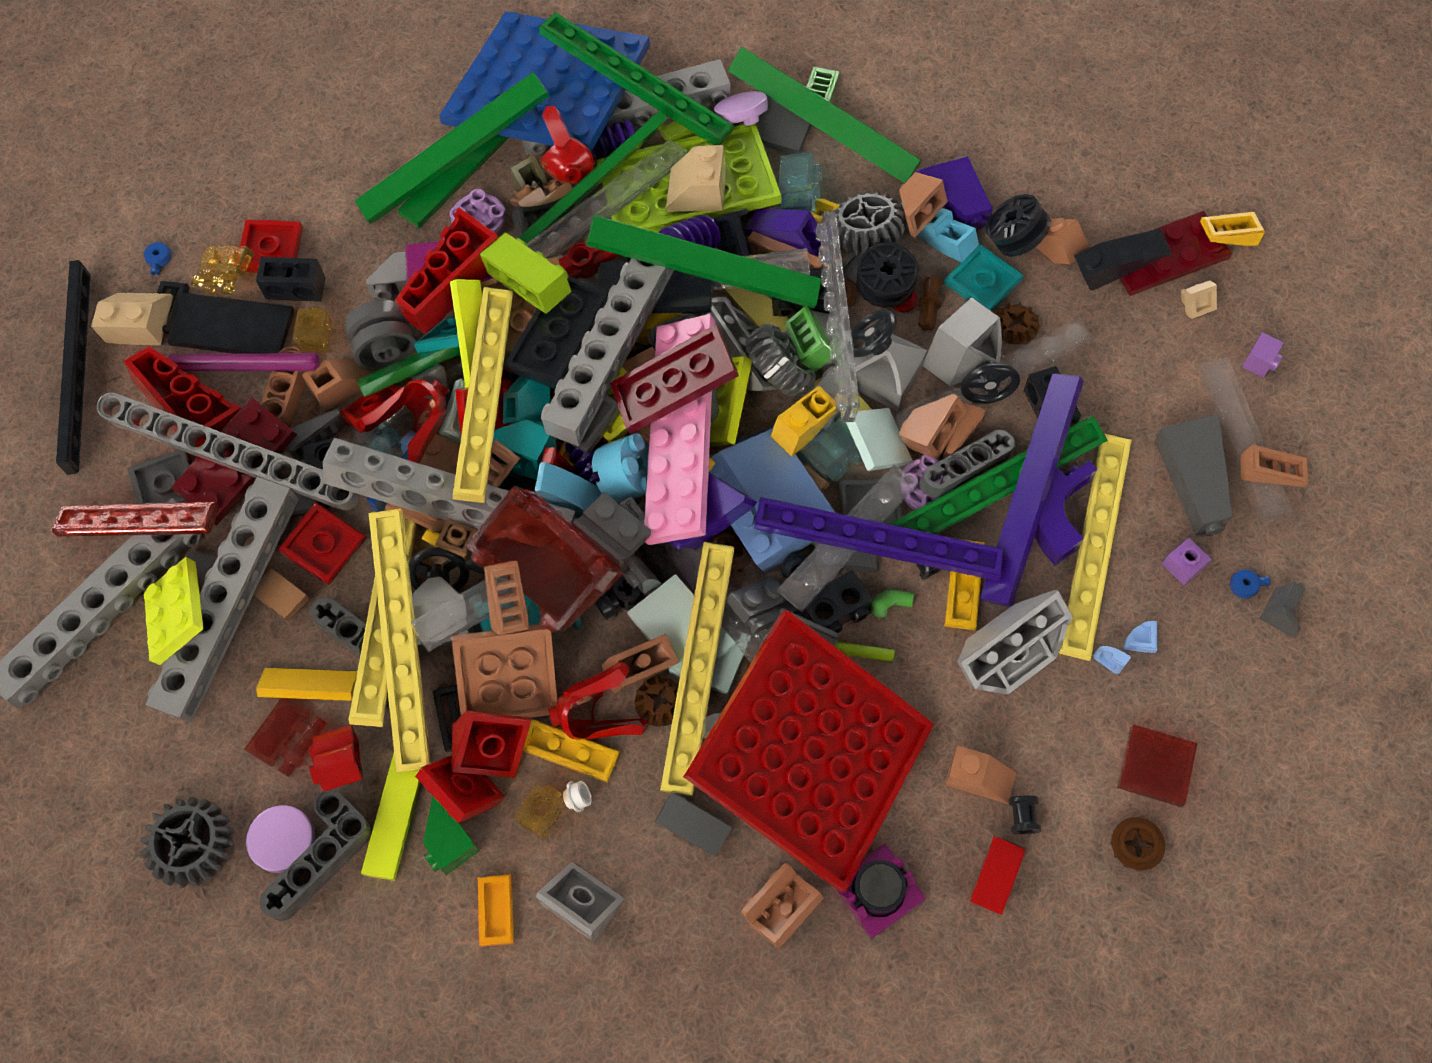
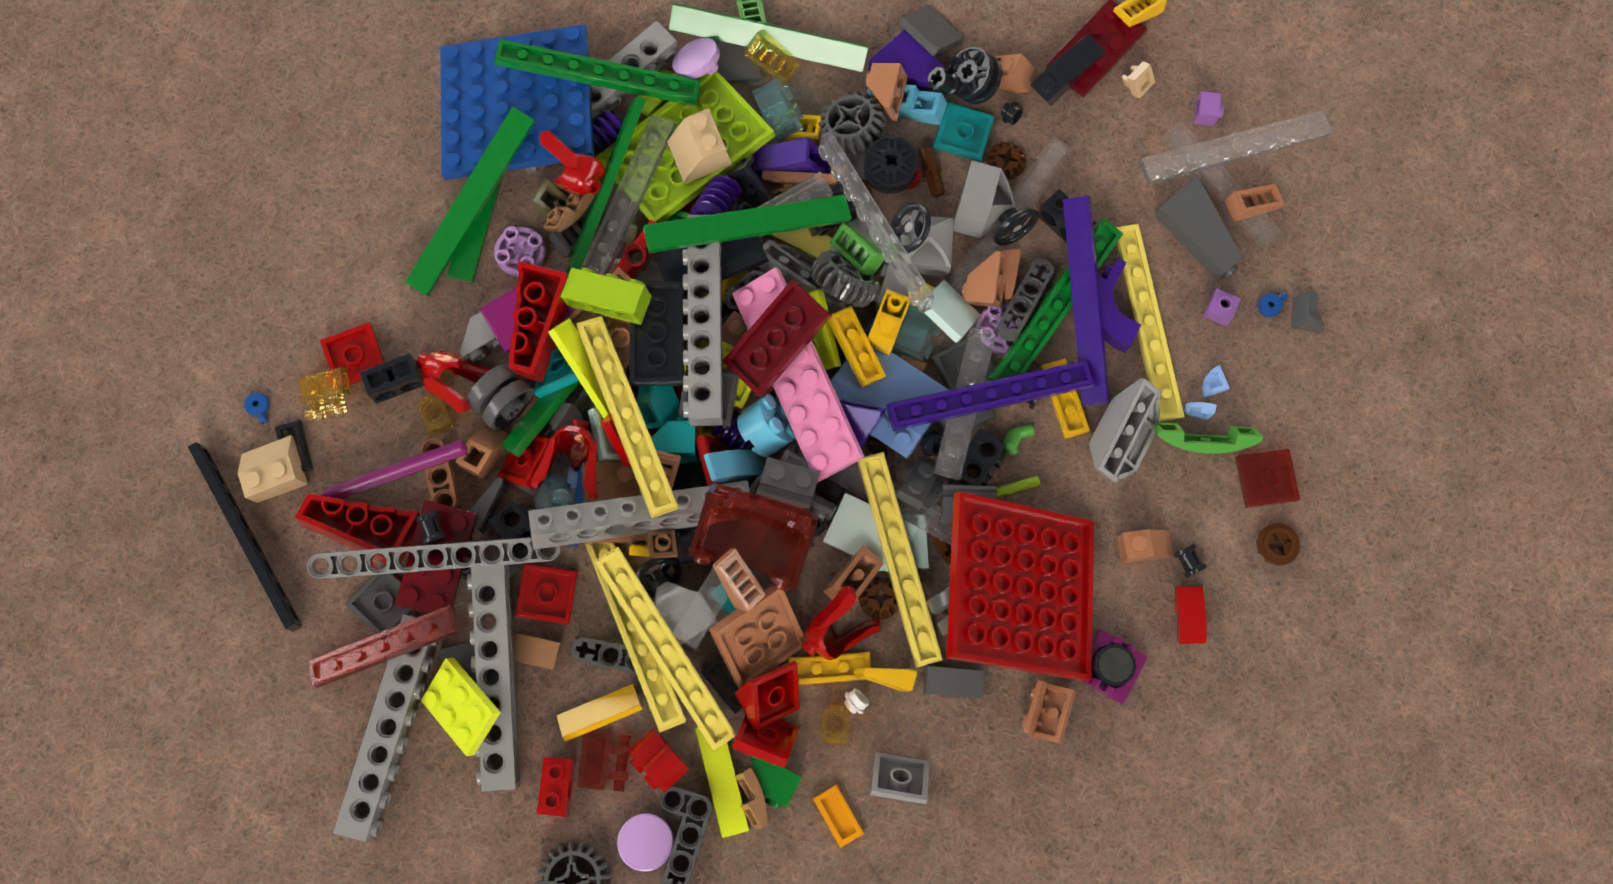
camera: 30 degrees left, 10 degrees up
(222, 737) = (556, 787): none -> red brick
(230, 325) = (359, 440): black tile -> none
(240, 421) = (431, 527): none -> black bush
(336, 283) = (438, 361): none -> red piece
(409, 852) = (754, 808): none -> medium nougat slope
(628, 788) = (897, 679): none -> yellow slope
(758, 430) = (856, 347): none -> yellow tile
(803, 116) = (754, 46): none -> clear yellow slope
(982, 217) = (947, 83): none -> black bush
(994, 169) = (931, 30): none -> dark grey tile
(1043, 276) = (1011, 110): none -> black plate
(1142, 706) = (1237, 438): none -> bright green slope
(1277, 403) = (1235, 147): none -> clear plate

